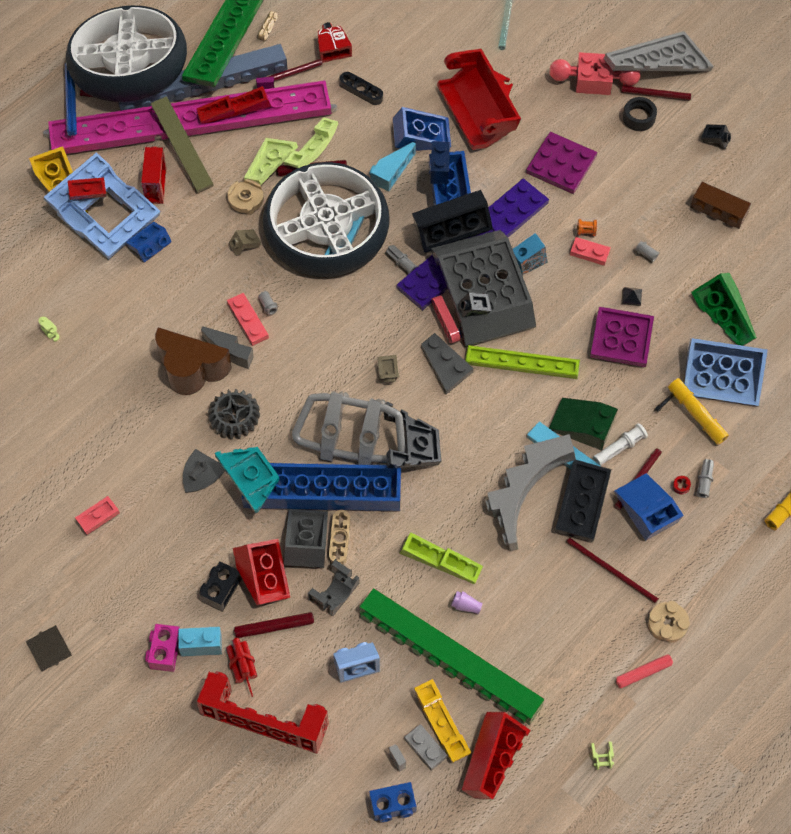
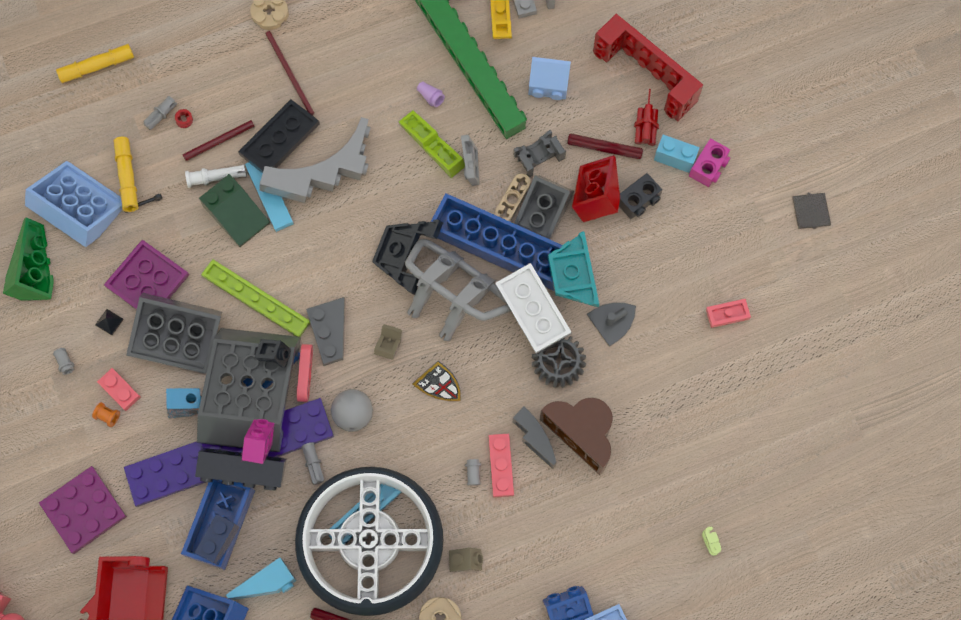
camera: 155 degrees left, 10 degrees up
(273, 432) = (533, 308): none -> white plate
(331, 359) = (439, 383): none -> shield
(389, 302) = (351, 410): none -> light grey piece
(394, 550) = (470, 156): none -> light grey wing
(446, 232) = (258, 441): none -> dark pink brick
(571, 302) = (173, 333): none -> dark grey slope
(648, 506) = (226, 103): blue slope -> none

